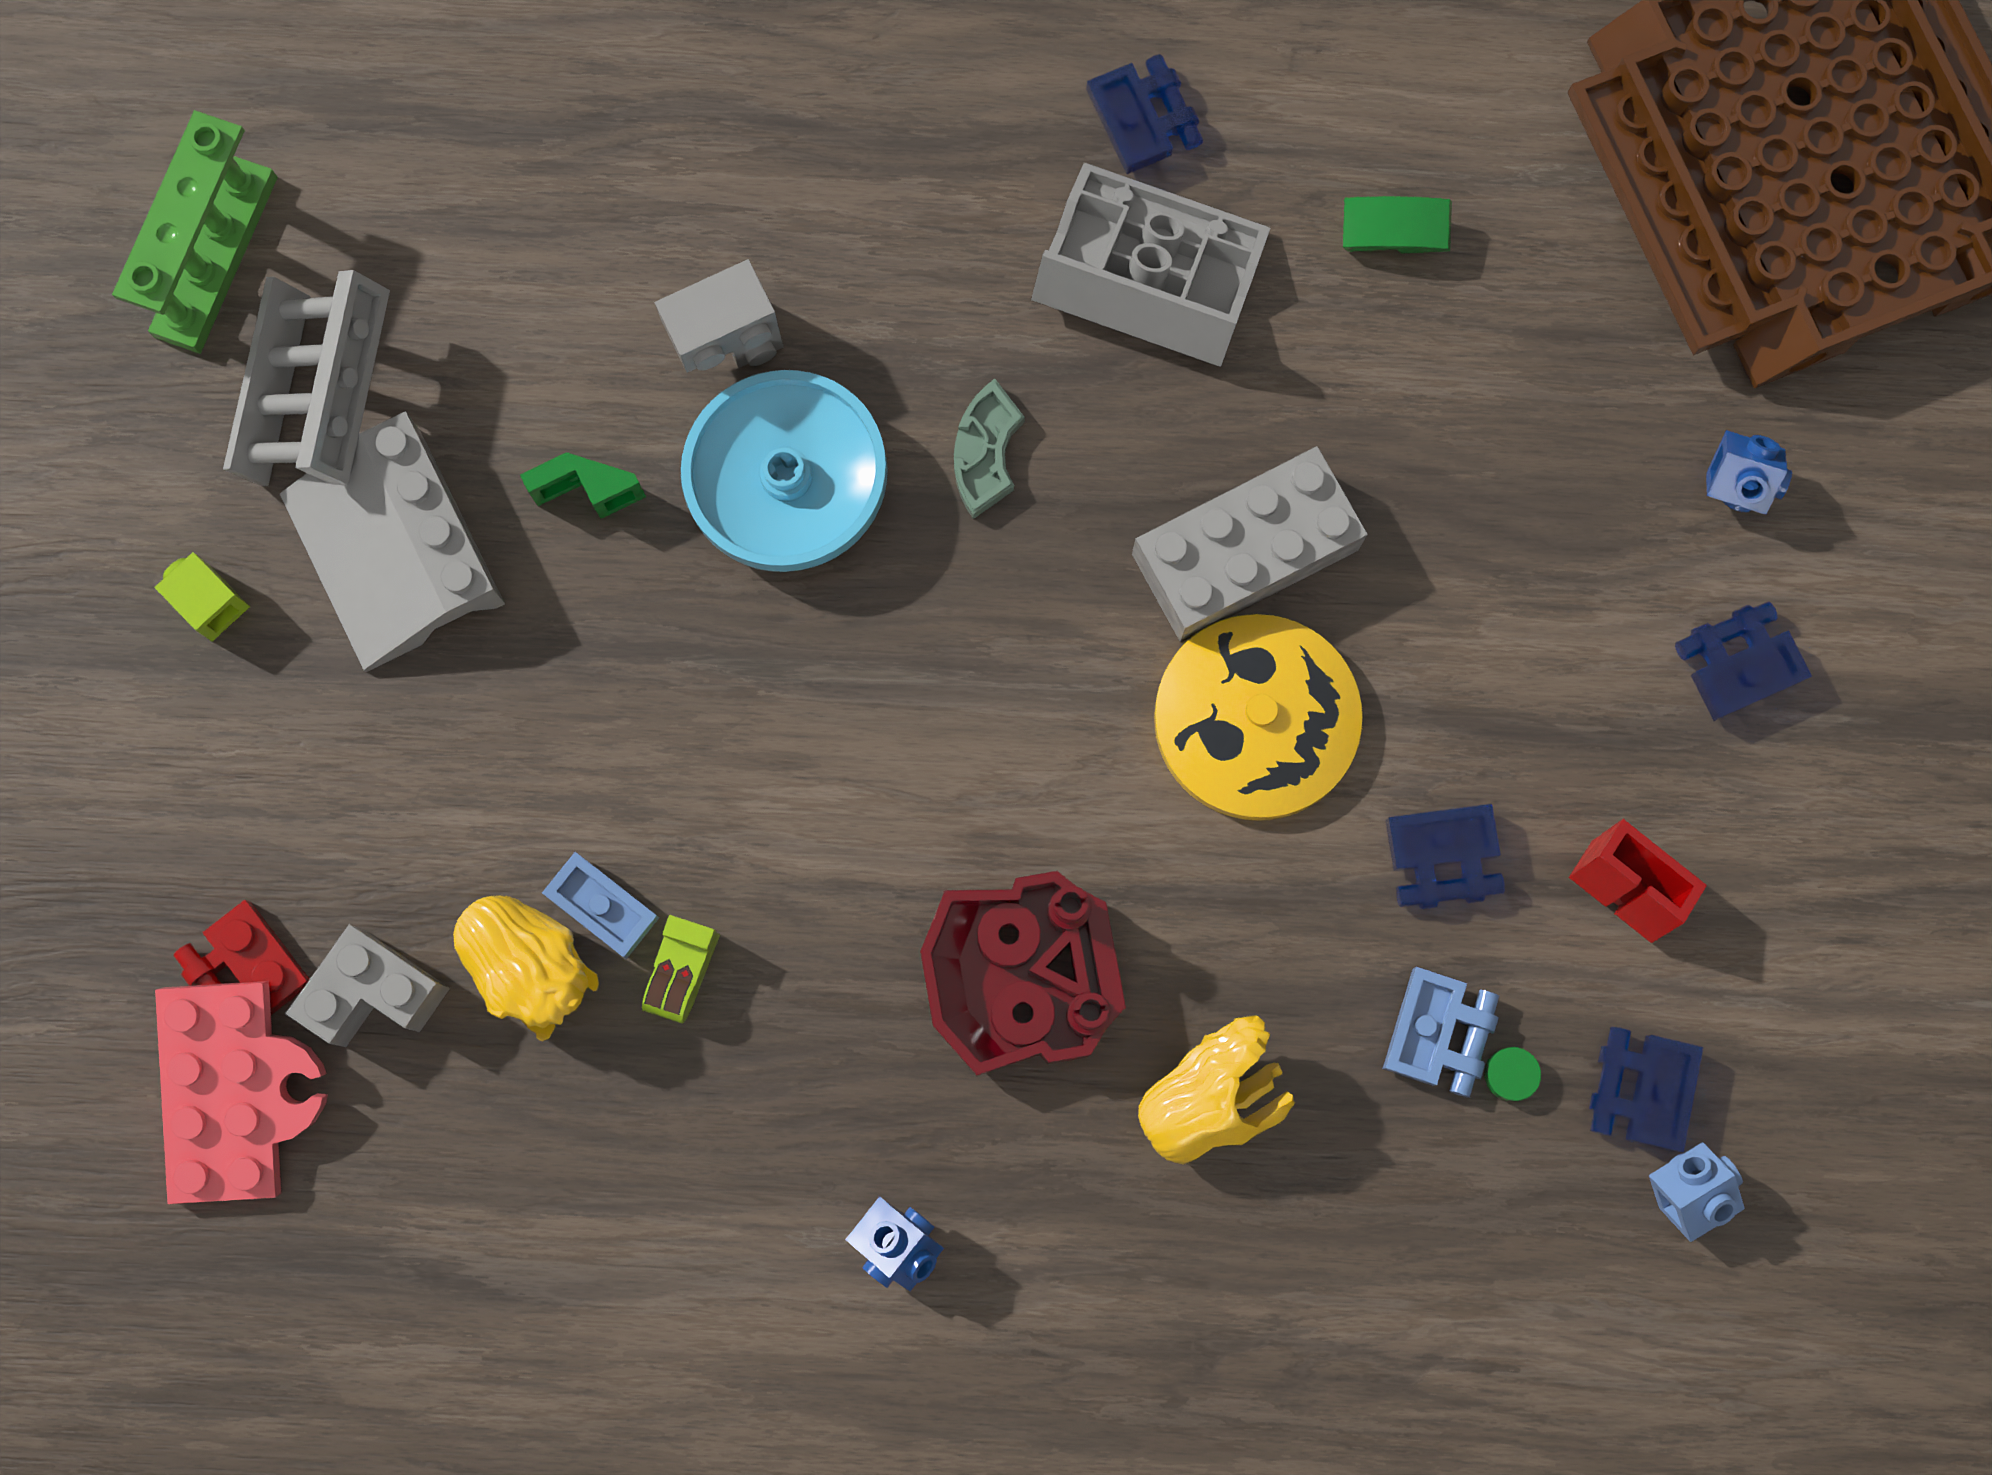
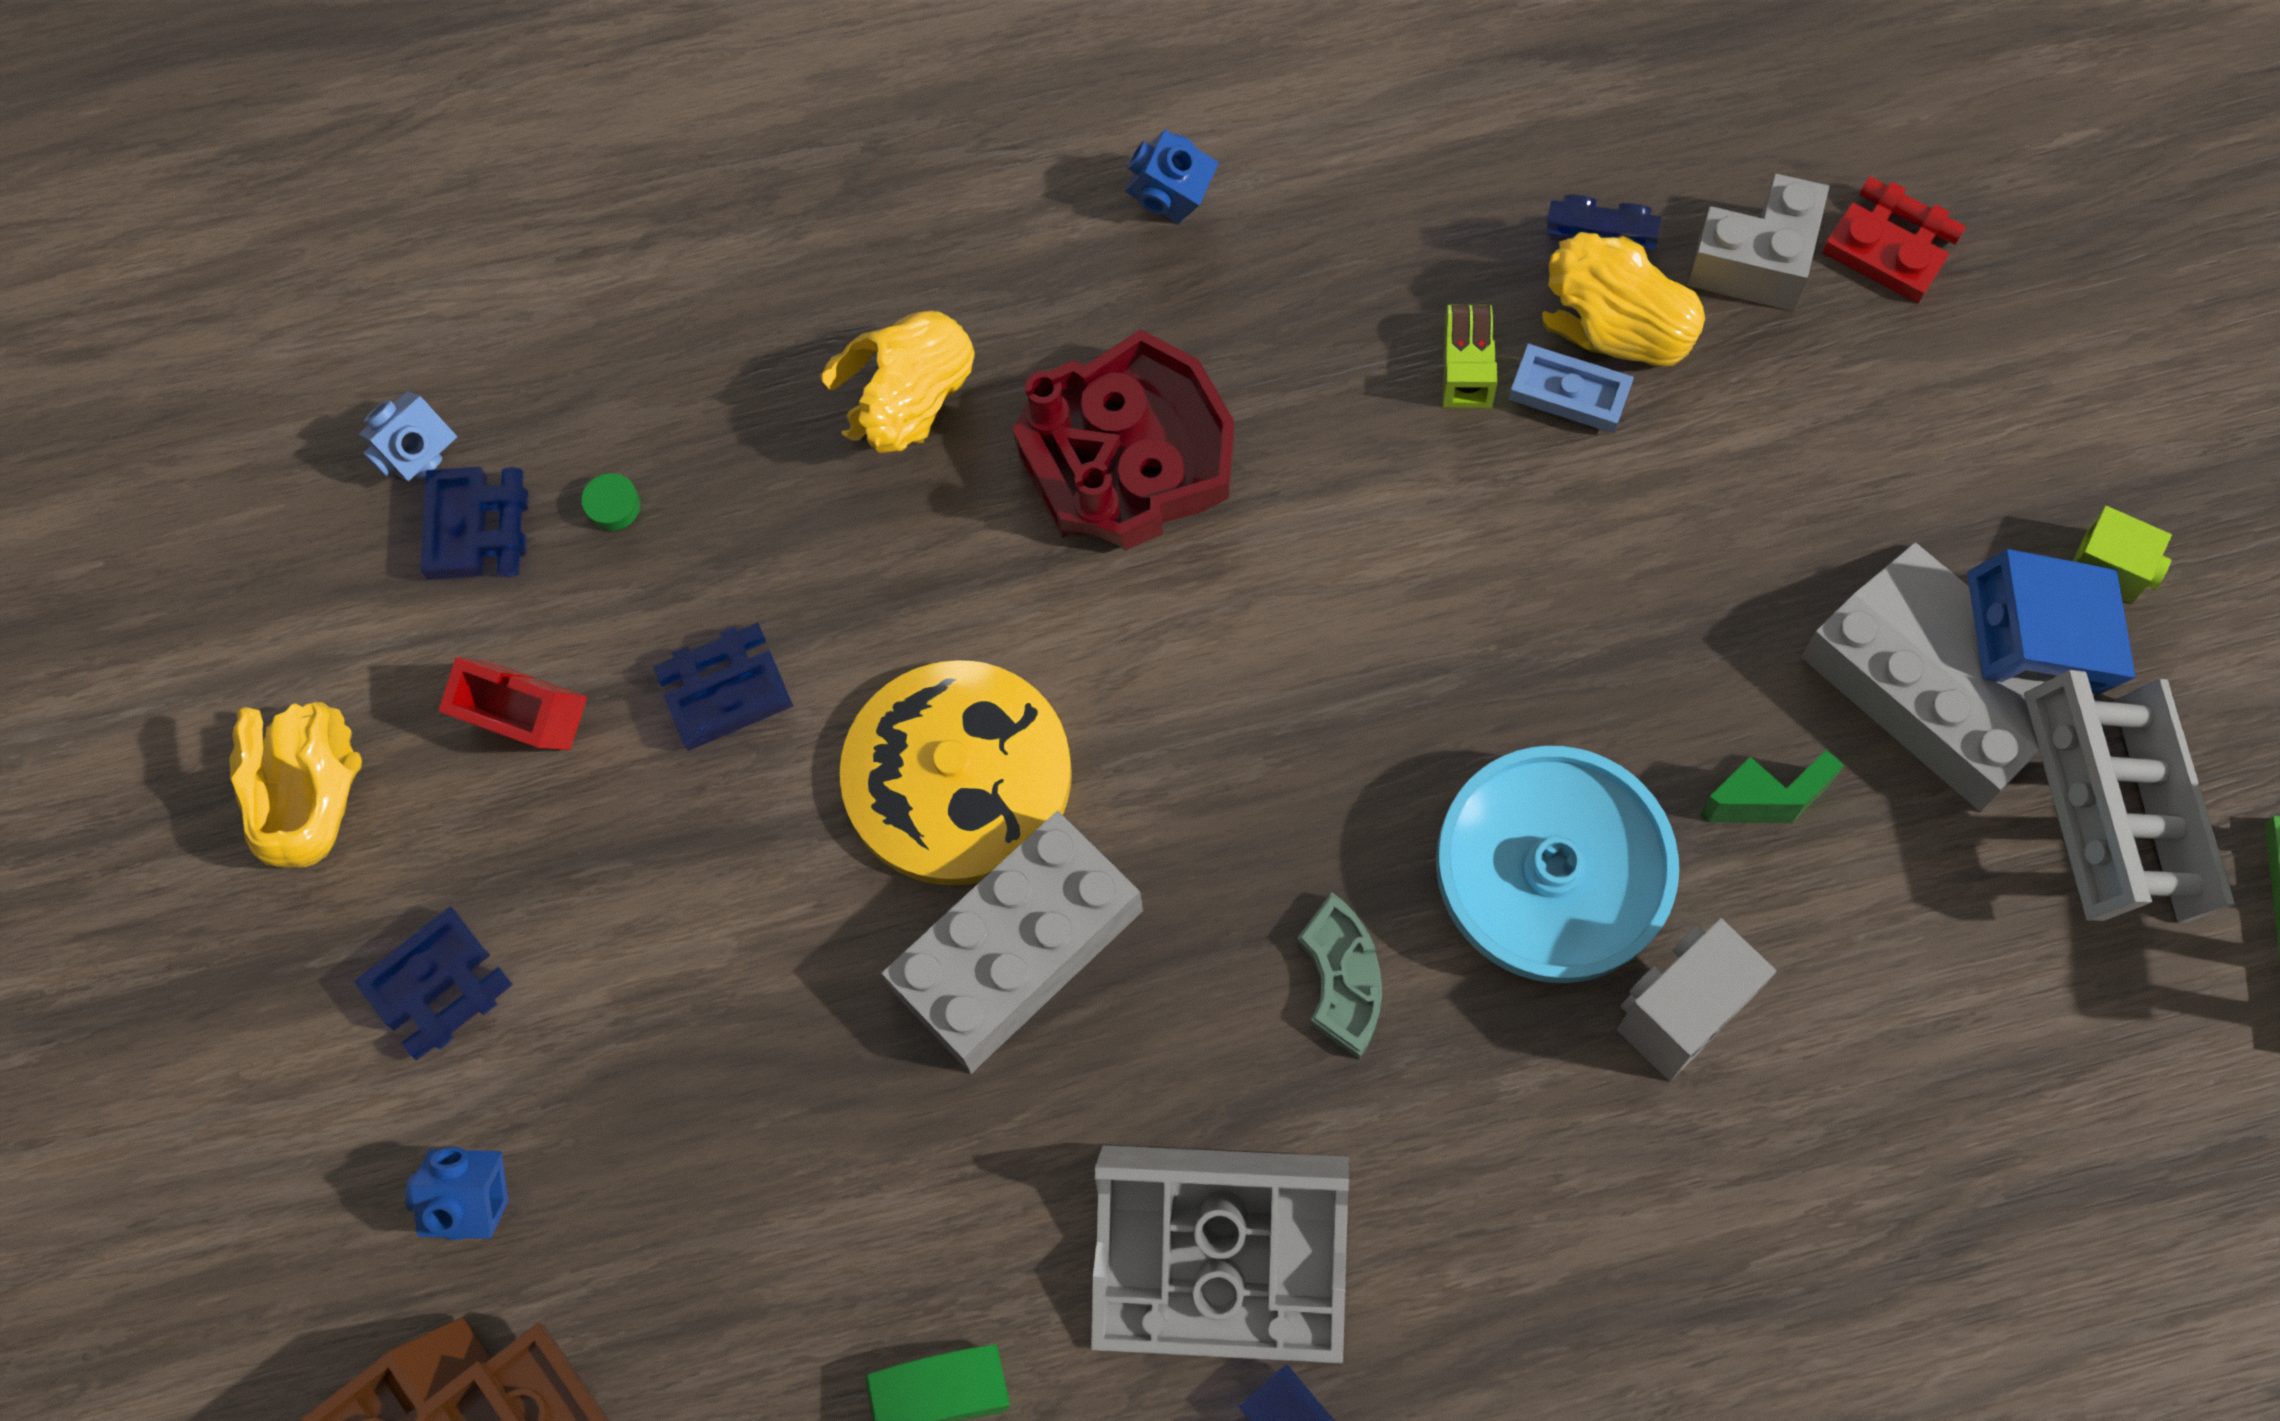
camera: 170 degrees right, 10 degrees down
(227, 1091) = (1853, 128): coral plate -> none
(295, 540) = (2049, 619): none -> blue panel
(507, 1049) = (1581, 214): none -> clear blue plate
(1426, 1027) = (706, 516): medium blue plate -> none
(1843, 869) = (292, 781): none -> yellow hair

